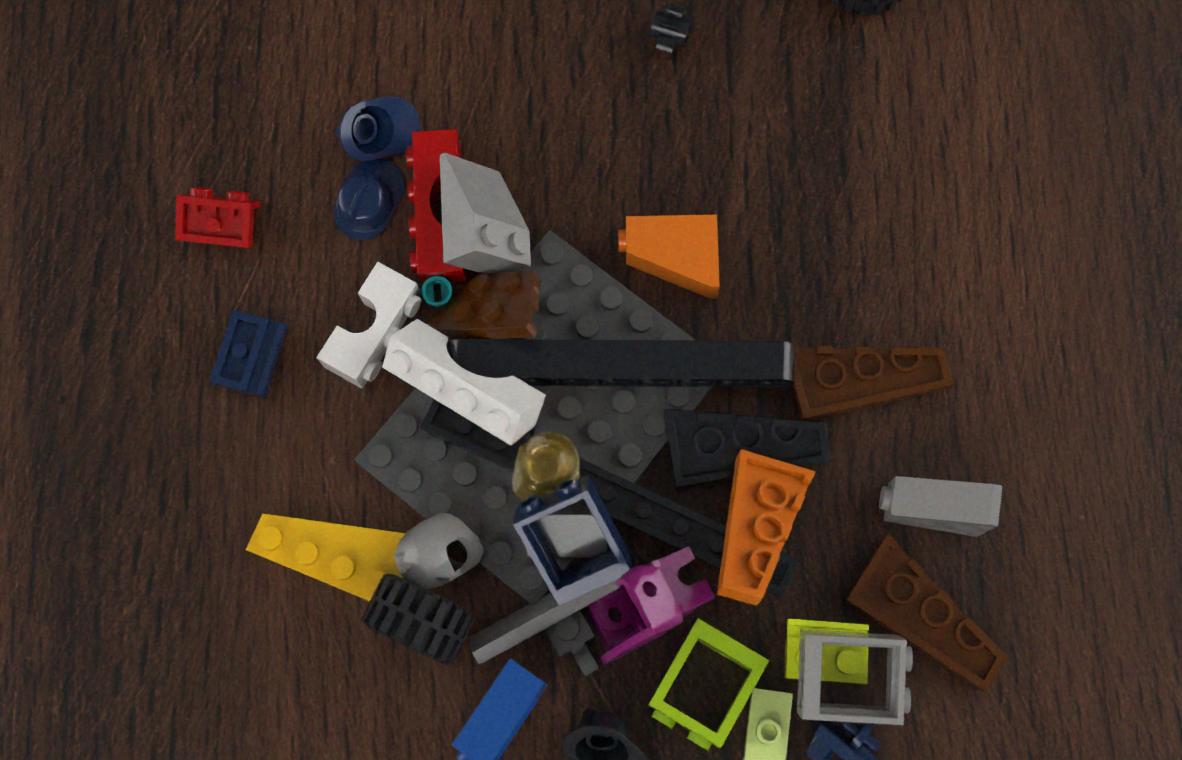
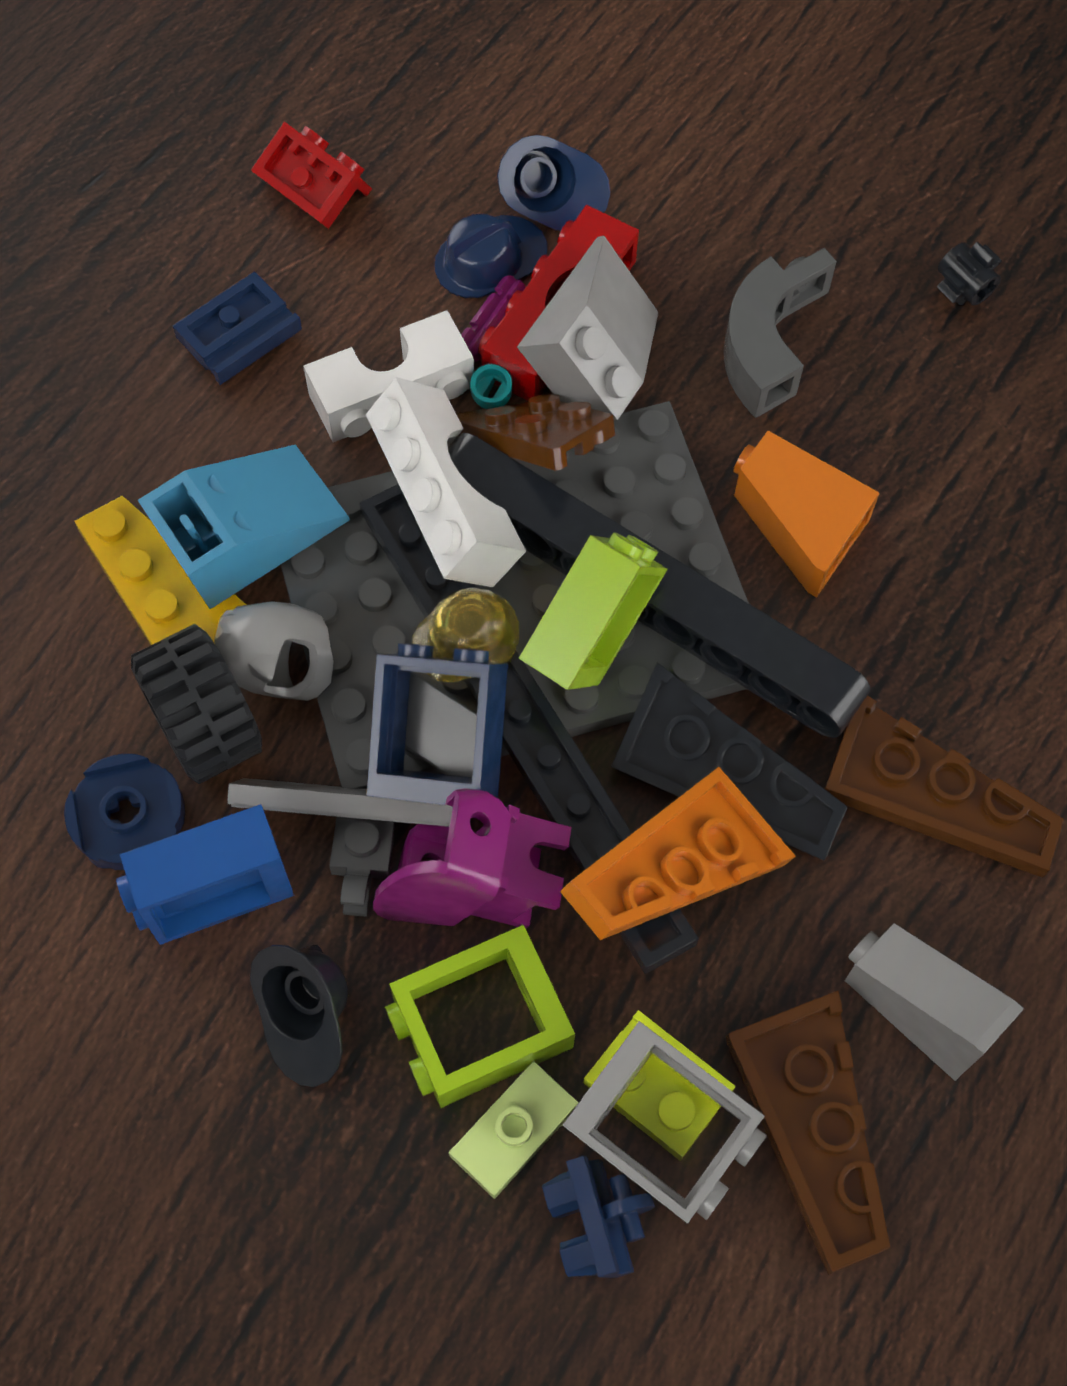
camera: 30 degrees right, 10 degrees down
(356, 483) = (242, 518): none -> dark azure slope
(401, 241) = (490, 313): none -> magenta axle
(440, 706) = (98, 796): none -> dark blue plate
(576, 163) = (755, 356): none -> dark grey arch
(616, 410) = (594, 611): none -> lime window

